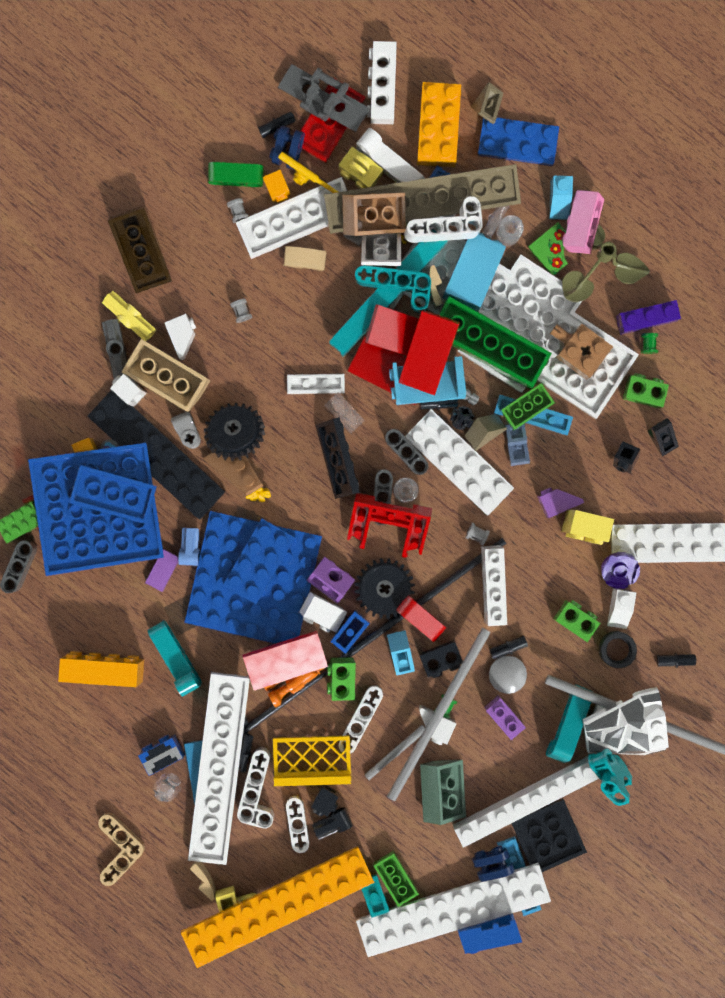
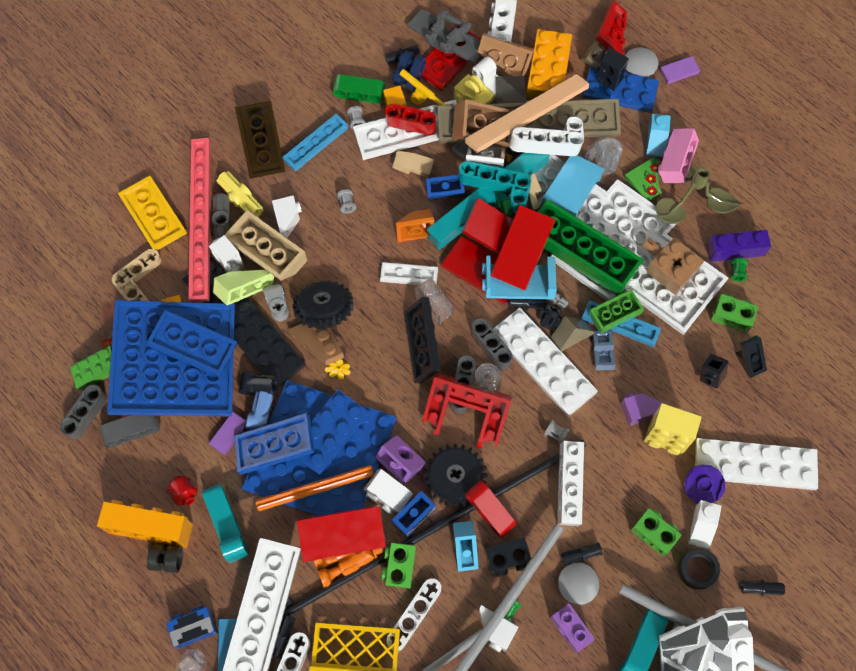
camera: 10 degrees right, 20 degrees down
(35, 426) = (129, 283): none -> tan beam
(42, 346) = (152, 213): none -> yellow plate
(59, 582) = (128, 429): none -> dark grey beam
(93, 349) = (199, 221): none -> coral plate
(129, 631) = (182, 490): none -> red head
(131, 700) = (172, 558): none -> pearl dark grey wheel
(147, 421) = (241, 284): none -> yellowish green slope
(182, 519) = (252, 383): none -> black piece
(198, 244) = (315, 142): none -> dark azure plate
(208, 581) = (274, 444): none -> blue plate
(253, 617) = (314, 488): none -> orange axle
(289, 204) = (419, 117): none -> red beam
(316, 331) = (414, 225): none -> orange slope
(340, 286) = (444, 187): none -> blue brick
(397, 121) = (506, 54): none -> medium nougat wing
(399, 162) = (510, 89): none -> clear smoke piece
(405, 303) = (504, 203): none -> dark green tile
(420, 196) = (526, 113): none -> light nougat tile
(504, 70) = (612, 28): none -> red wing
(506, 127) = (612, 69): none -> black brick
(538, 105) = (641, 62): none -> light grey dish
(581, 110) = (679, 70): none -> medium lavender tile

